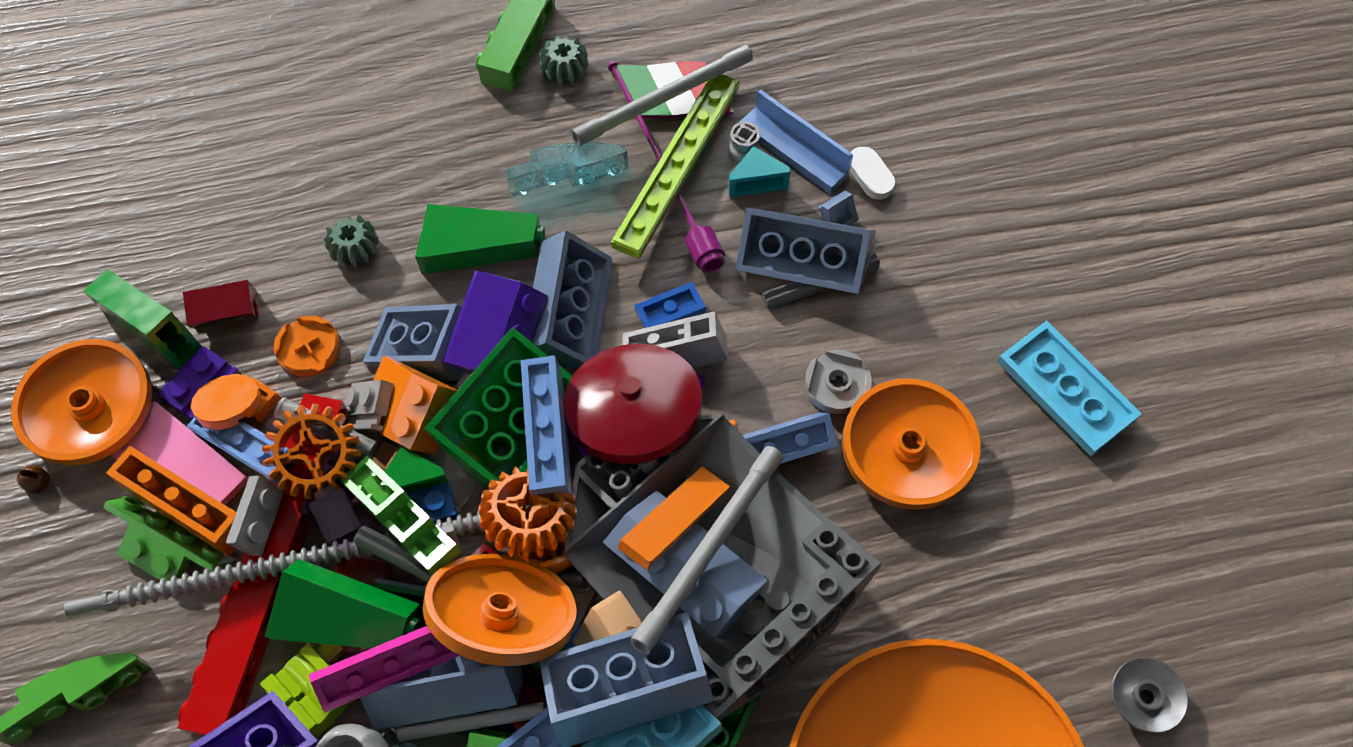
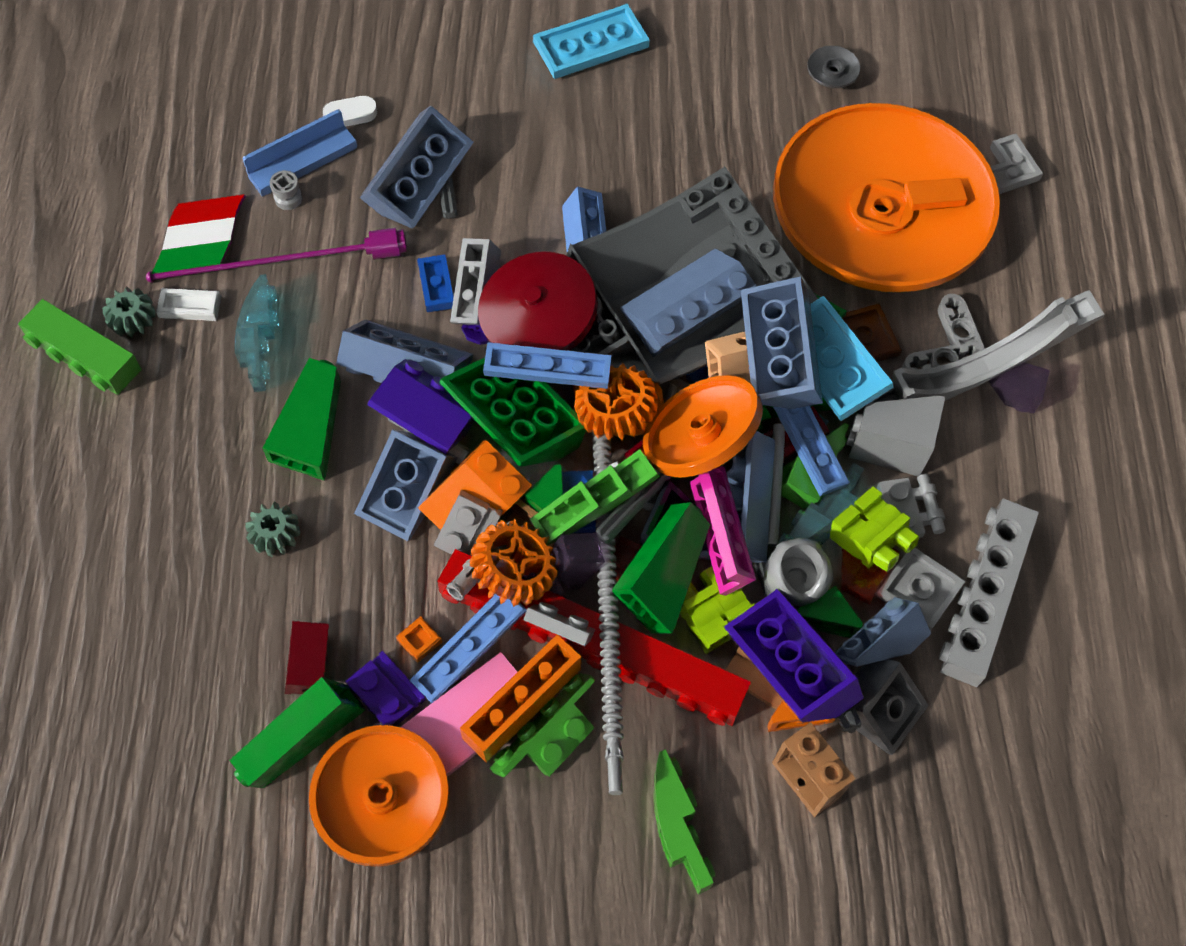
camera: 80 degrees left, 0 degrees up
(31, 484) = (451, 862): reddish brown hinge -> none
(226, 401) = (423, 653): orange tile -> none
(307, 346) = (374, 588): orange tile -> none
(589, 99) = (188, 304): none -> white tile
(596, 127) = (233, 290): light grey piece -> none
(658, 620) = (748, 305): light grey piece -> none
(673, 518) = (654, 291): orange tile -> none
(674, 166) = (290, 244): lime tile -> none
(758, 174) = (322, 187): teal slope -> none
(836, 363) = (540, 196): light grey plate -> none
(840, 209) = (382, 139): sand blue tile -> none
(911, 443) = (613, 145): orange dish -> none

